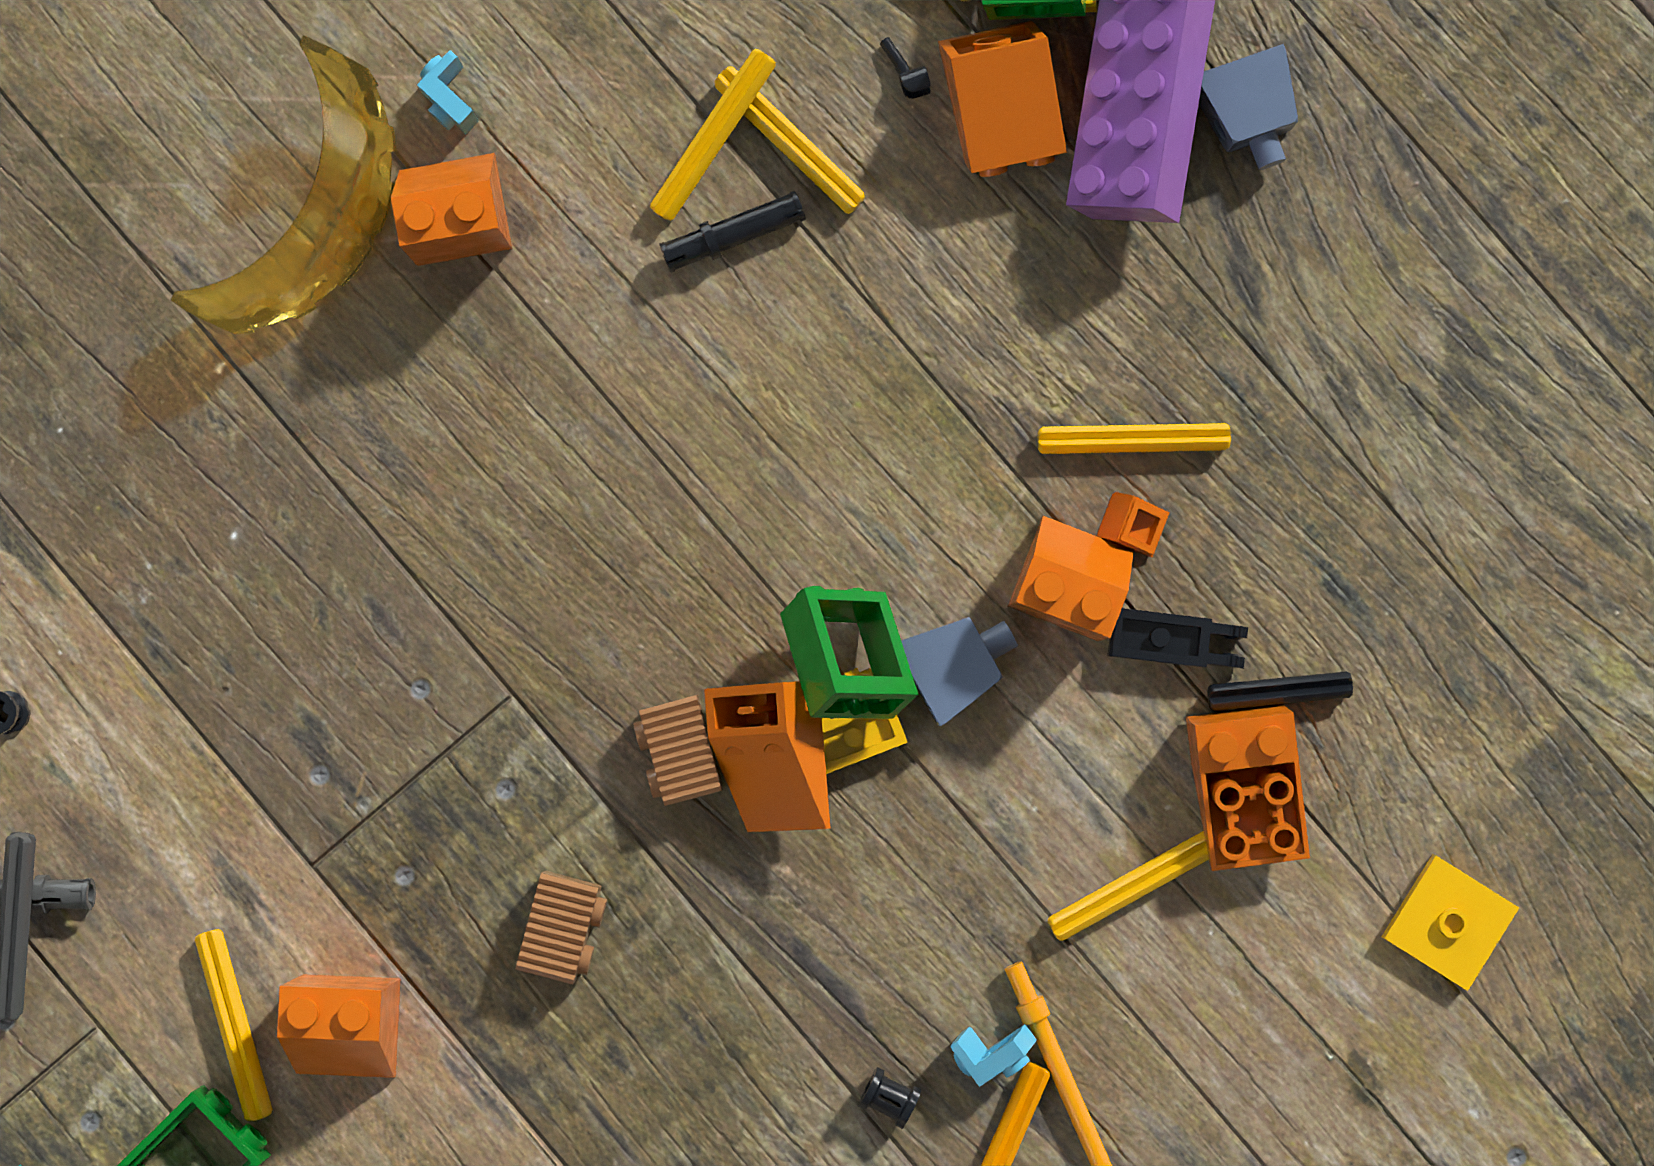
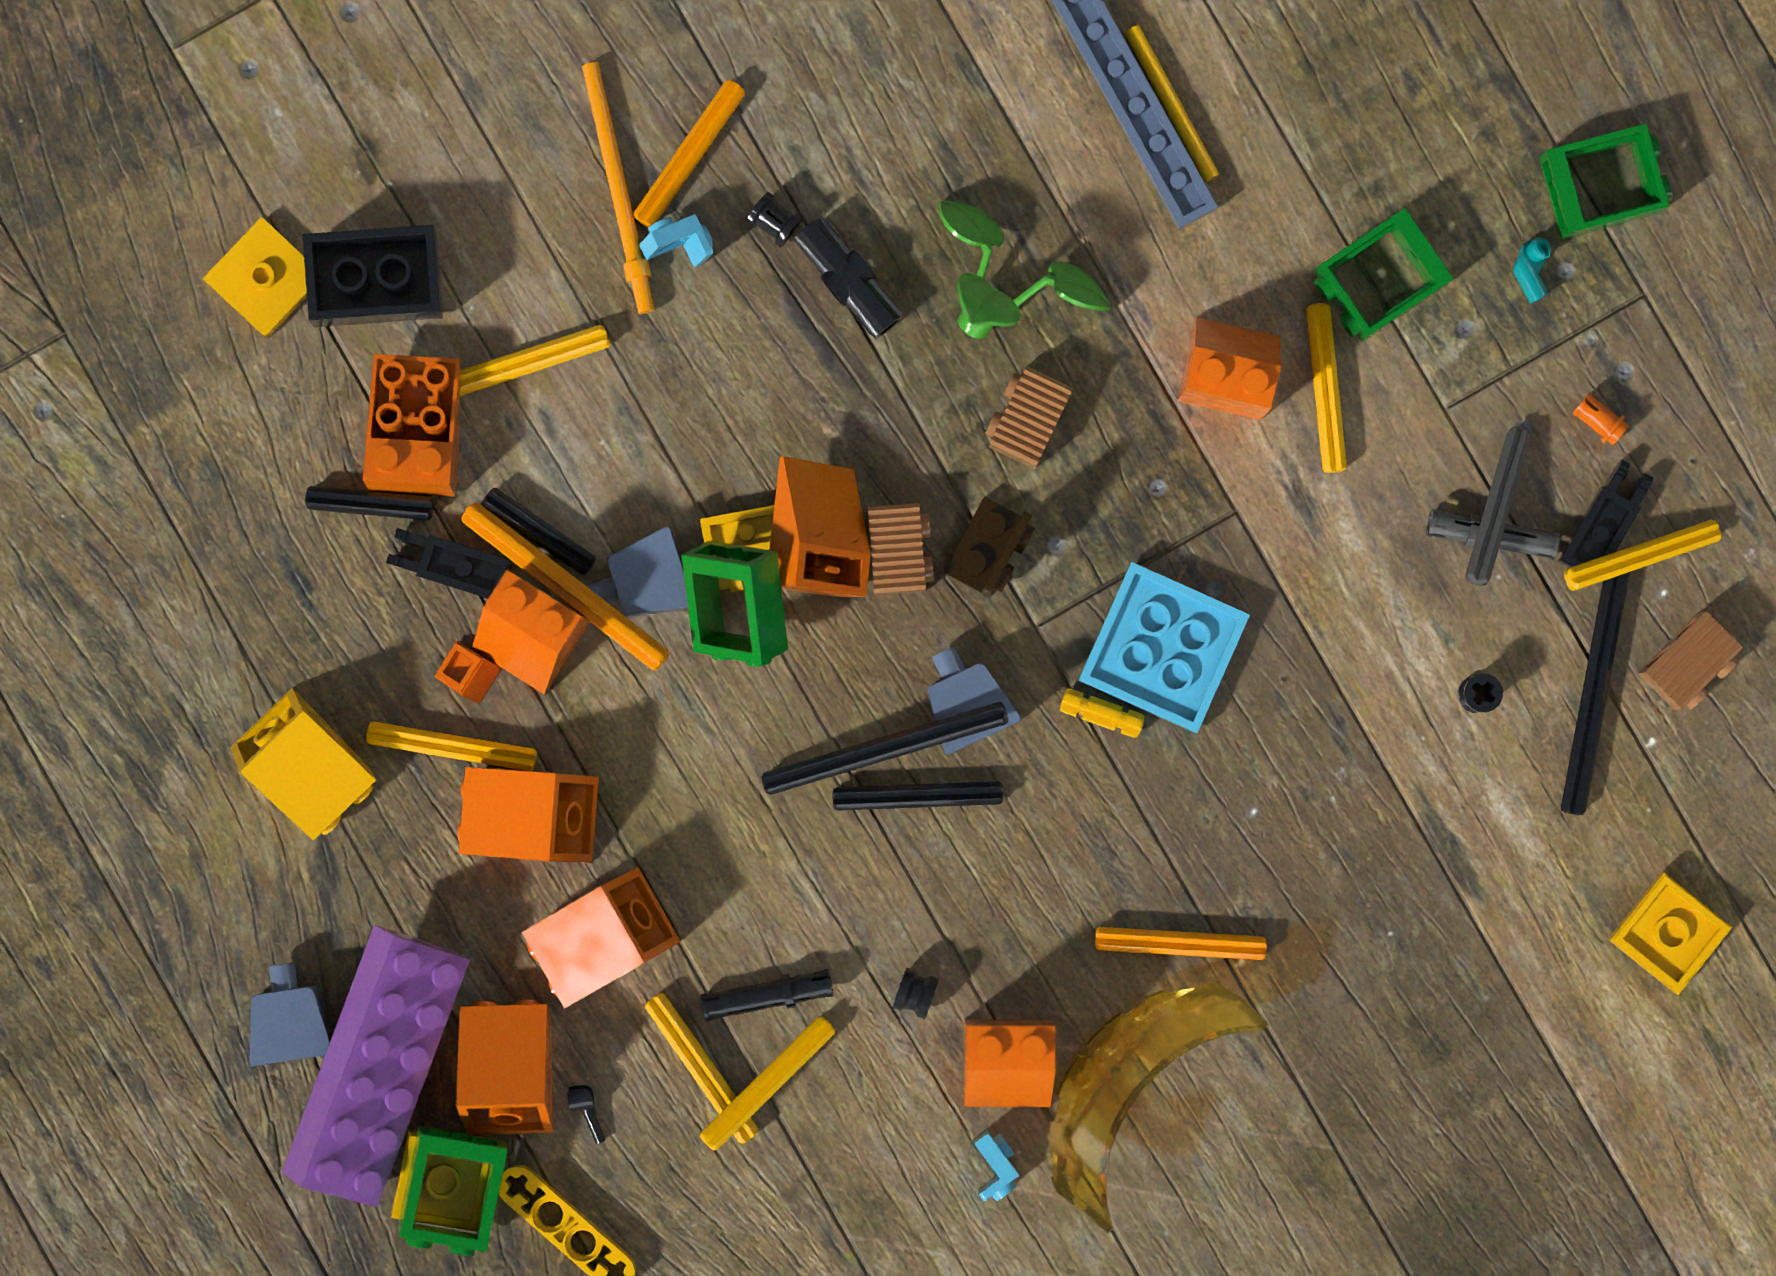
camera: 165 degrees left, 0 degrees up
(287, 374) = (1180, 943): none -> light orange axle
(363, 697) = (1164, 647): none -> medium azure plate
(419, 611) = (1102, 713): none -> yellow axle
(569, 264) = (915, 993): none -> black wheel
(570, 593) = (964, 691): none -> sand blue torso
(576, 772) = (987, 547): none -> dark brown bracket
(607, 481) = (917, 795): none -> black axle
(631, 1045) = (985, 305): none -> bright green plant
(650, 524) = (885, 748): none -> black axle
(793, 1047) = (848, 277): none -> black piece
(926, 258) = (600, 937): none -> slope
(1033, 376) = (528, 815): none -> orange slope
(1042, 637) = (565, 586): none -> light orange axle
(1084, 695) = (539, 531): none -> black axle
(1295, 384) = (302, 765): none -> yellow slope
(1329, 946) = (372, 276): none -> black brick

